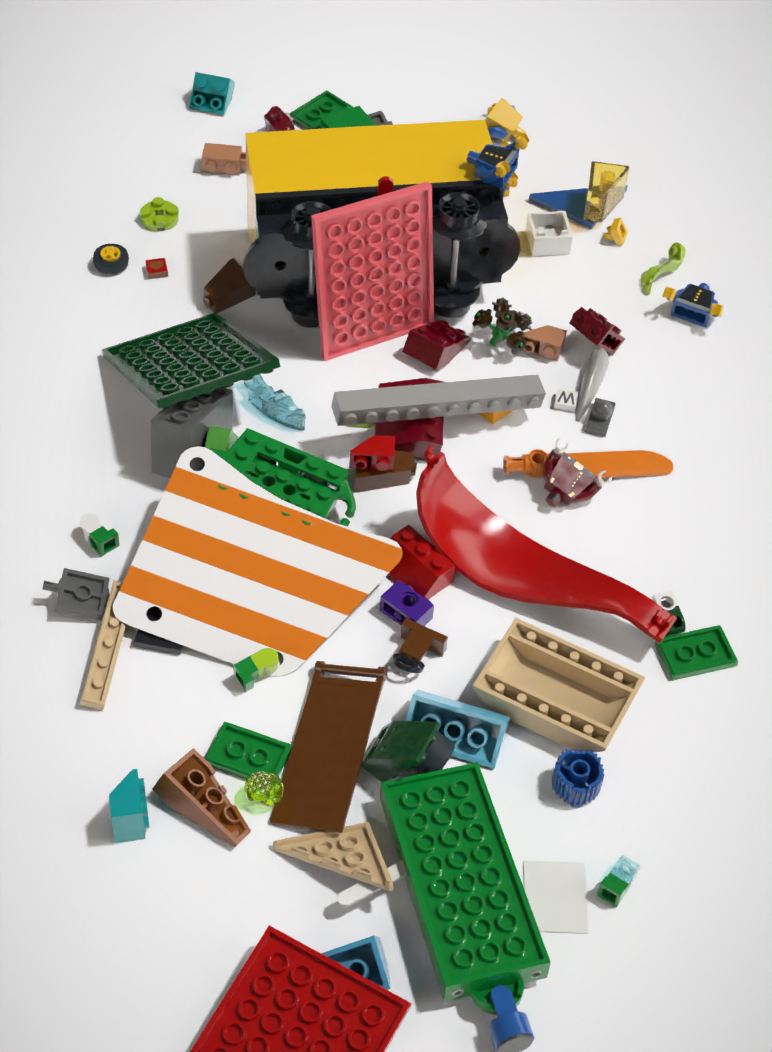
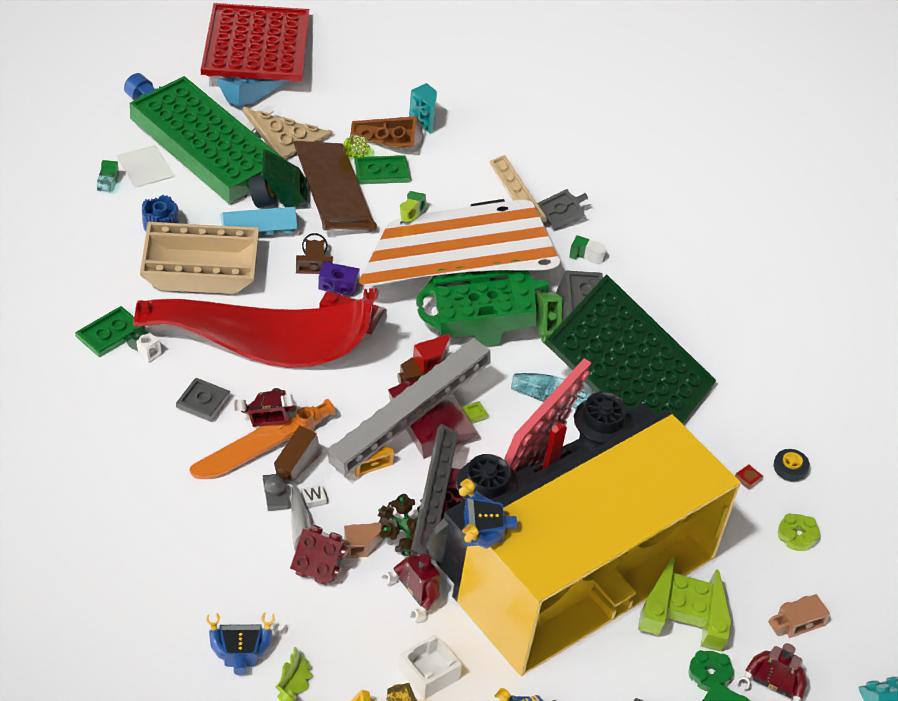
camera: 150 degrees right, 5 degrees down
(467, 320) = (435, 487): none -> dark grey tile
(520, 287) = (420, 580): none -> dark red torso
(566, 422) = (297, 454): none -> reddish brown slope
(629, 529) = (203, 399): none -> dark grey plate

